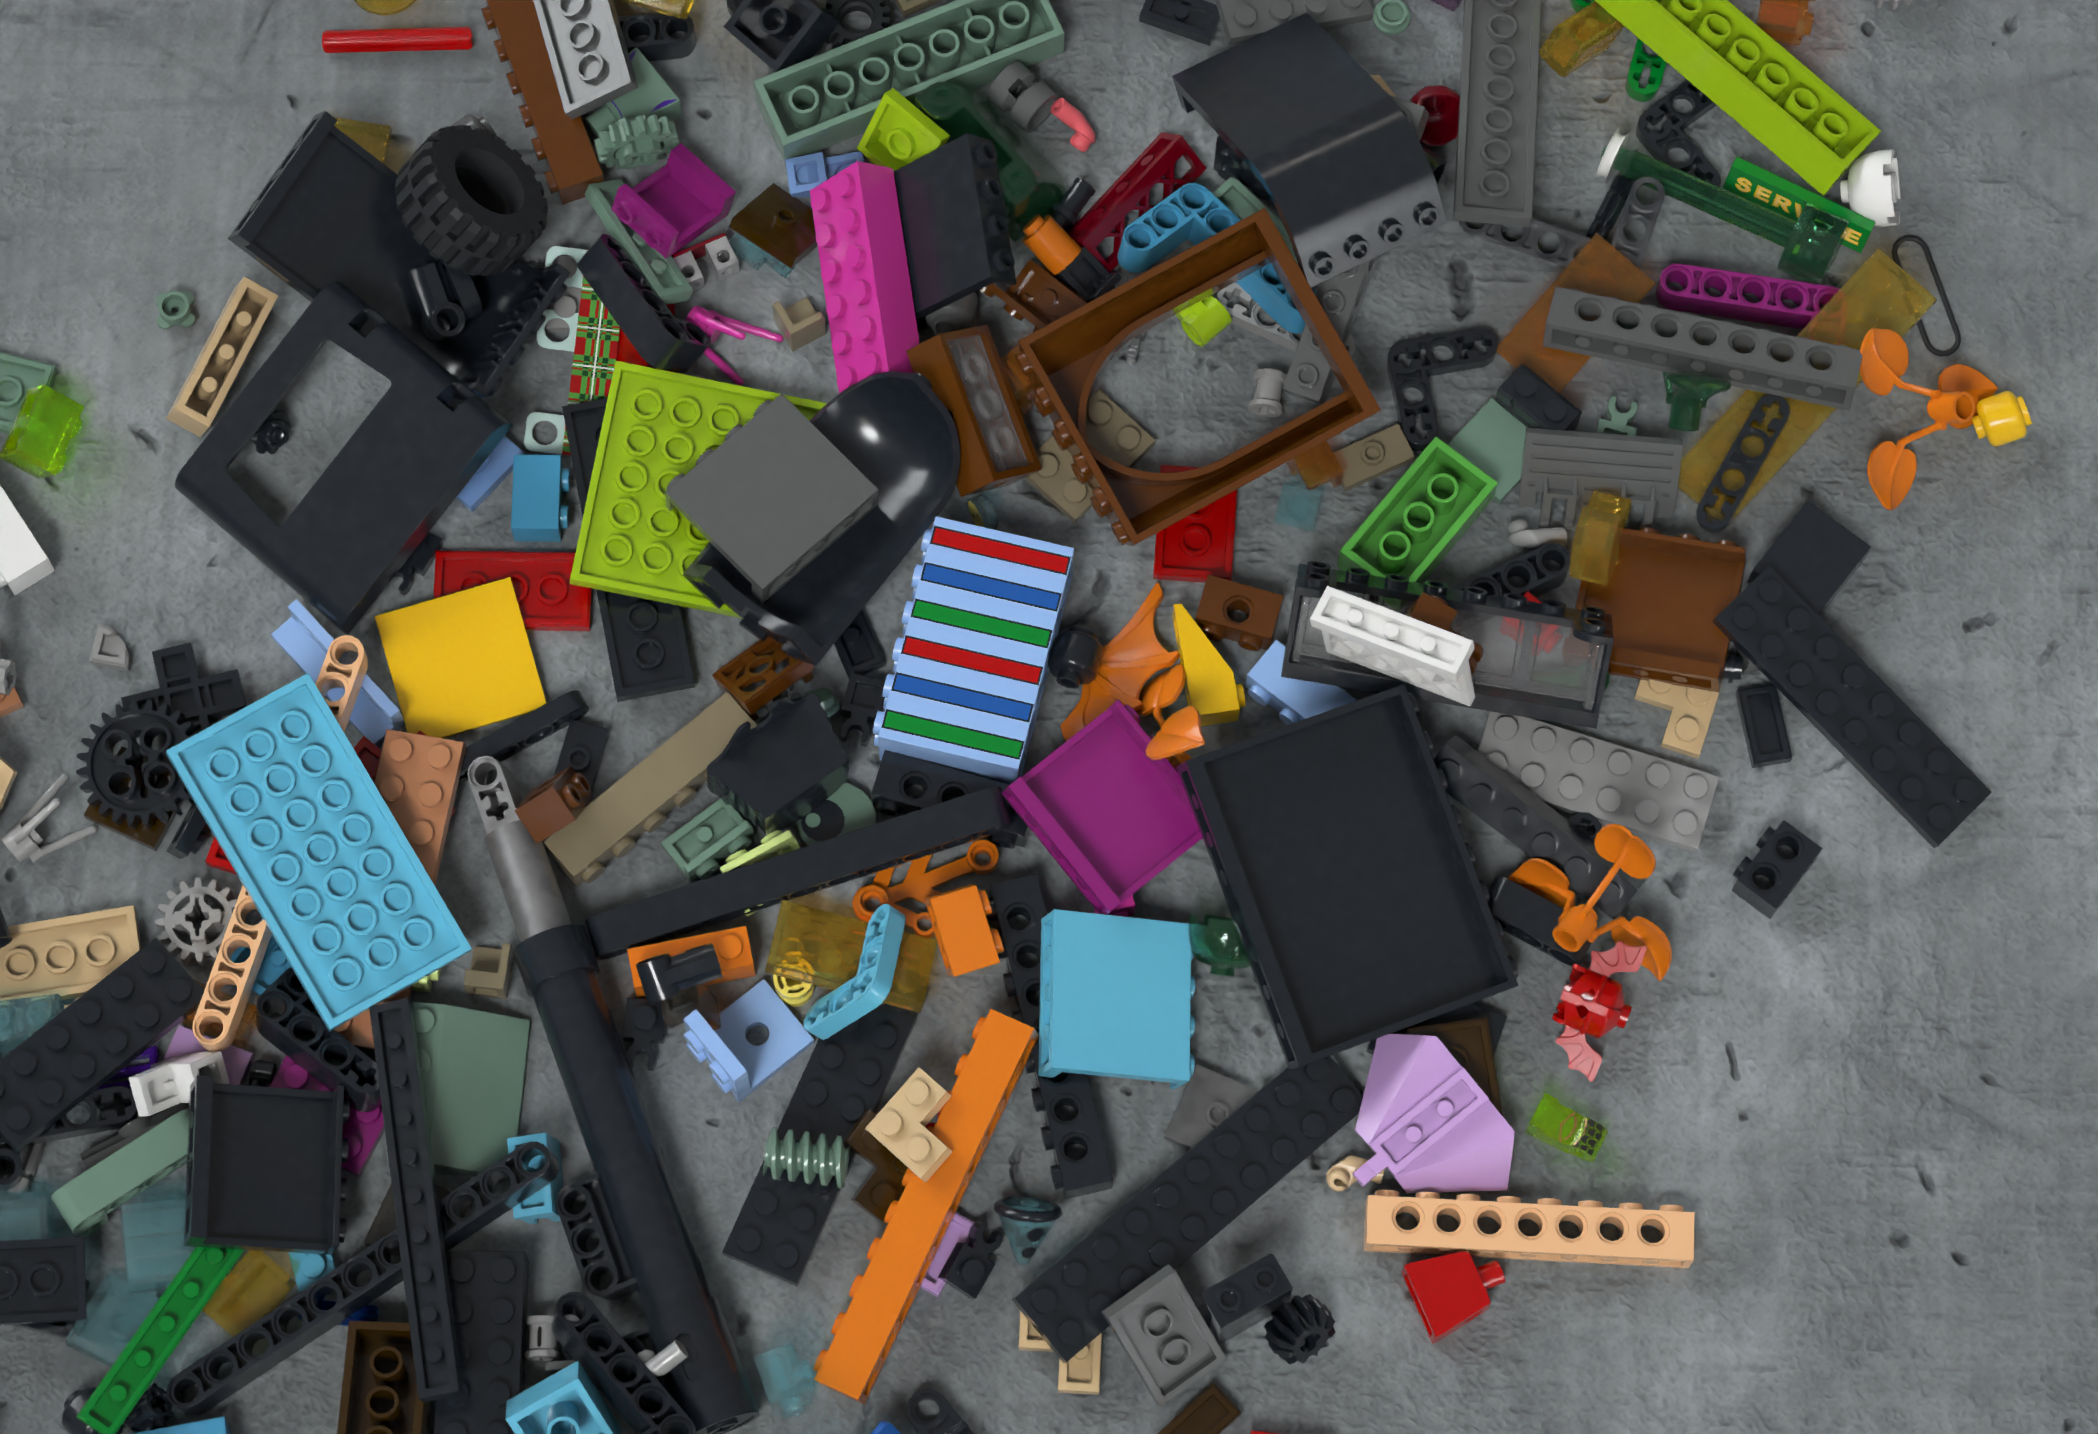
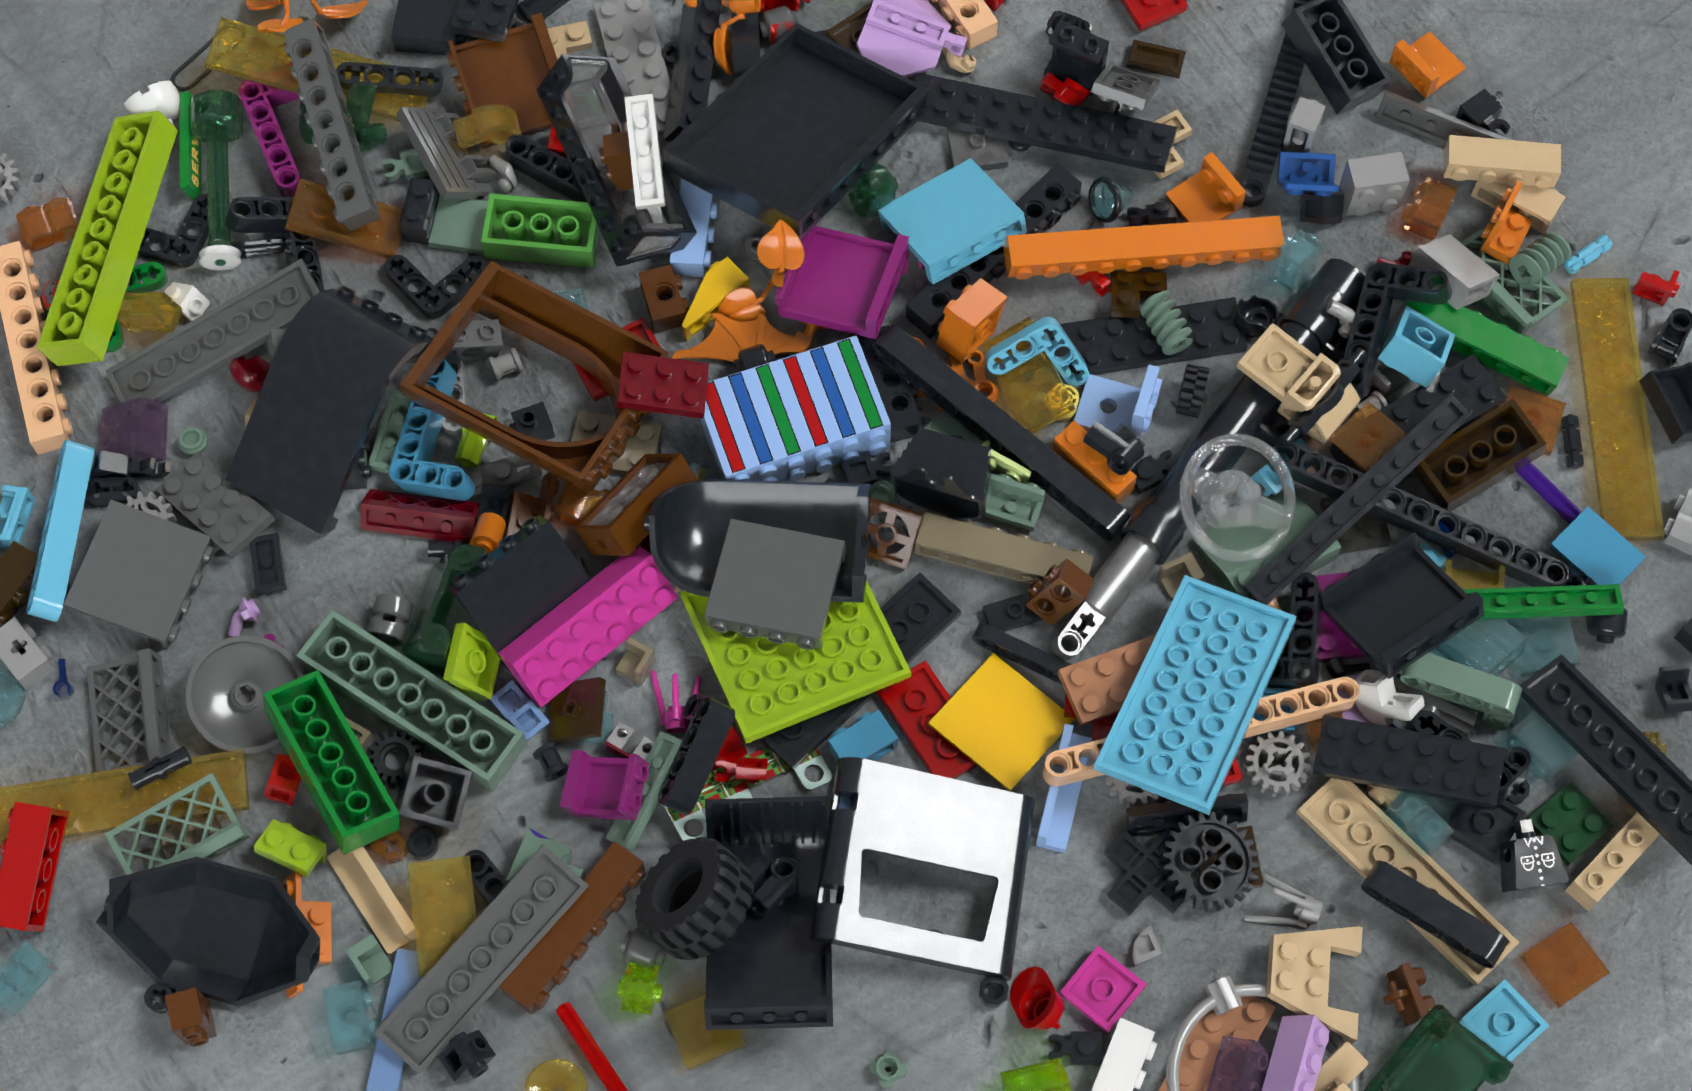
camera: 120 degrees left, 5 degrees down
(56, 516) = (1083, 1047): none -> black plate
(96, 572) = (1102, 989): none -> dark pink plate
(127, 491) = (1036, 1000): none -> red piece
(172, 459) = (993, 991): none -> black tile
(222, 357) = (904, 1004): tan brick -> none
(426, 111) = (640, 989): none -> clear neon green brick
(490, 1285) = (1367, 436): none -> clear orange piece
(504, 1059) = (1246, 503): none -> clear piece
(590, 355) = (748, 769): none -> red plate
(600, 1237) = (1311, 388): none -> tan piece
(636, 141) = (577, 833): sand green gear -> none
(702, 1134) = (1192, 390): none -> black tyre
(744, 171) = (551, 761): none -> black bush
(750, 1290) = (1256, 315): none -> black hair
(903, 1123) = (1111, 277): tan plate -> none
(954, 1340) = (1208, 194): none -> orange bracket
(1077, 122) = (391, 572): coral arm -> none
(1089, 505) = (663, 385): none -> dark red plate
(1167, 376) = (533, 422): none -> black brick
(1212, 1268) = (1064, 92): none -> red plate
(1543, 981) = (776, 22): none -> dark grey head
(1583, 93) = (188, 298): none -> white bracket

